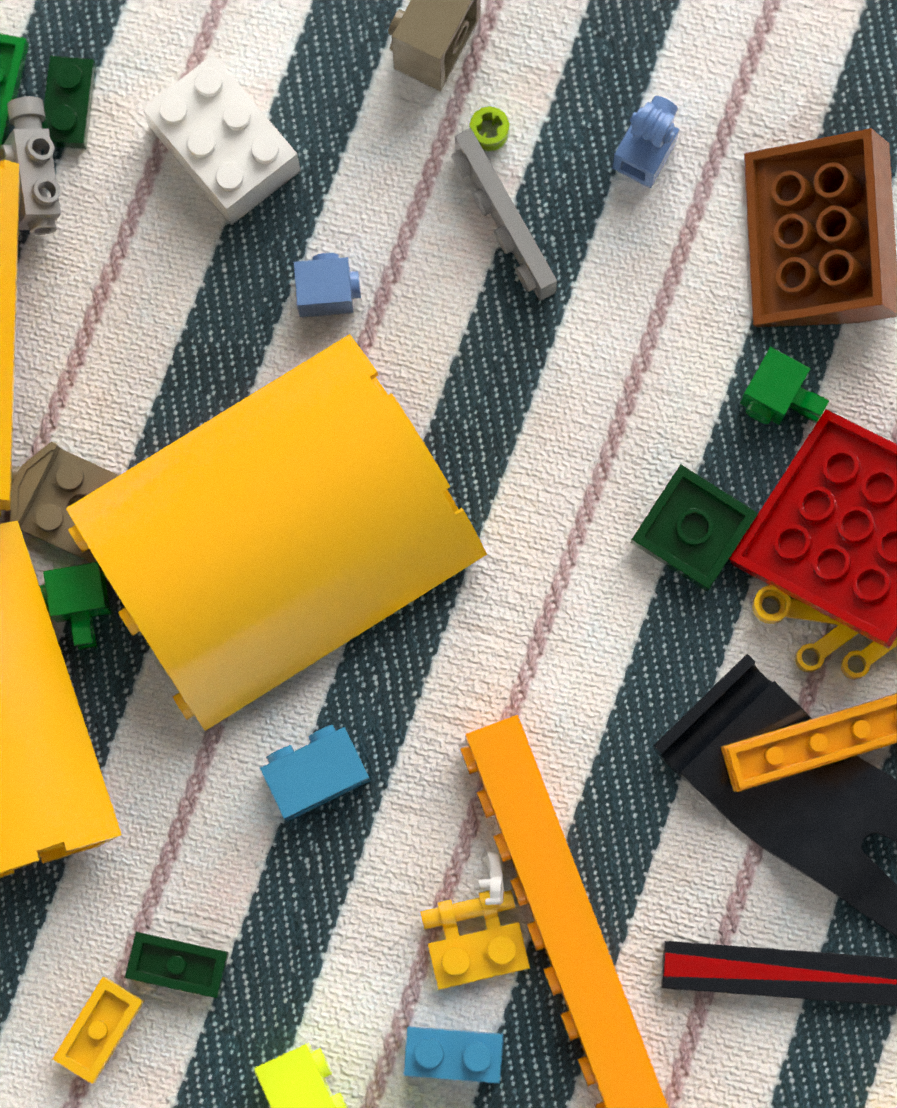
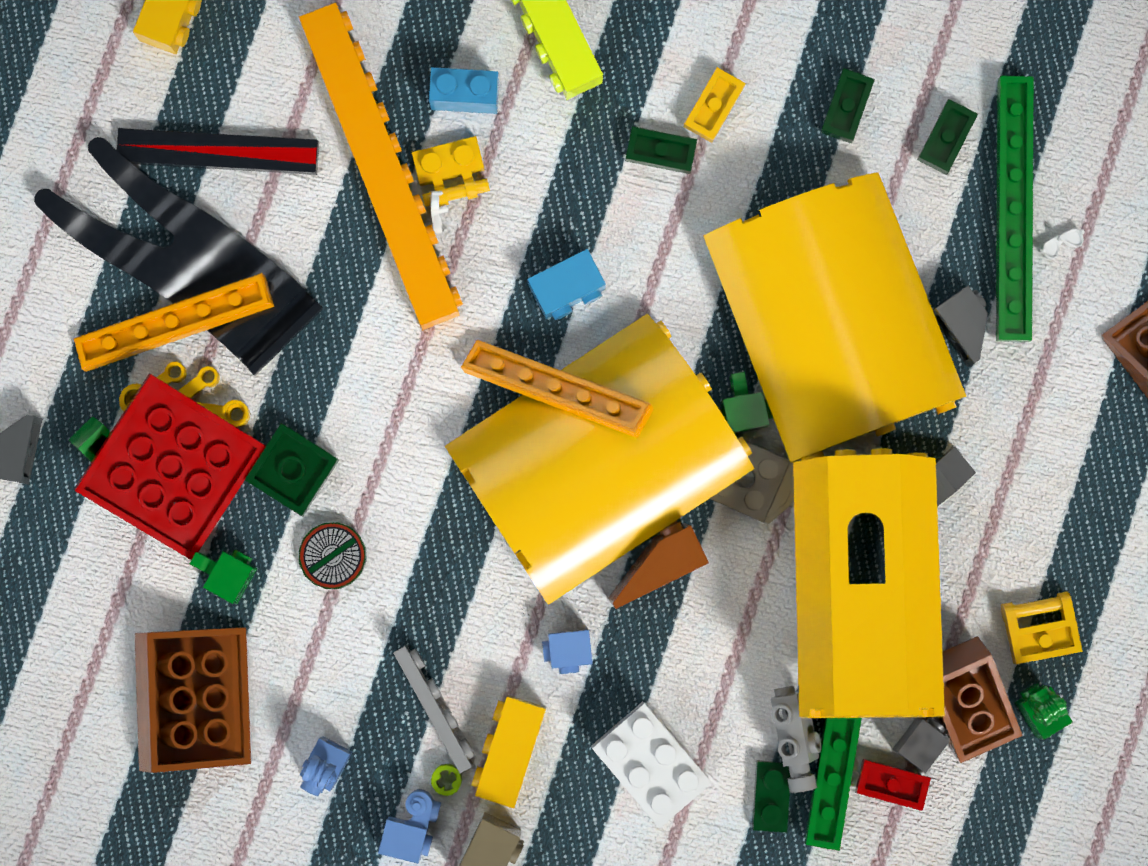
camera: 170 degrees right, 5 degrees up
(202, 381) = (663, 561): none -> dark orange slope
(329, 619) = (557, 388): none -> light orange tile
(406, 160) = (508, 751): none -> yellow brick
(539, 55) = (409, 837): none -> medium blue brick
(638, 415) = (332, 555): none -> tile

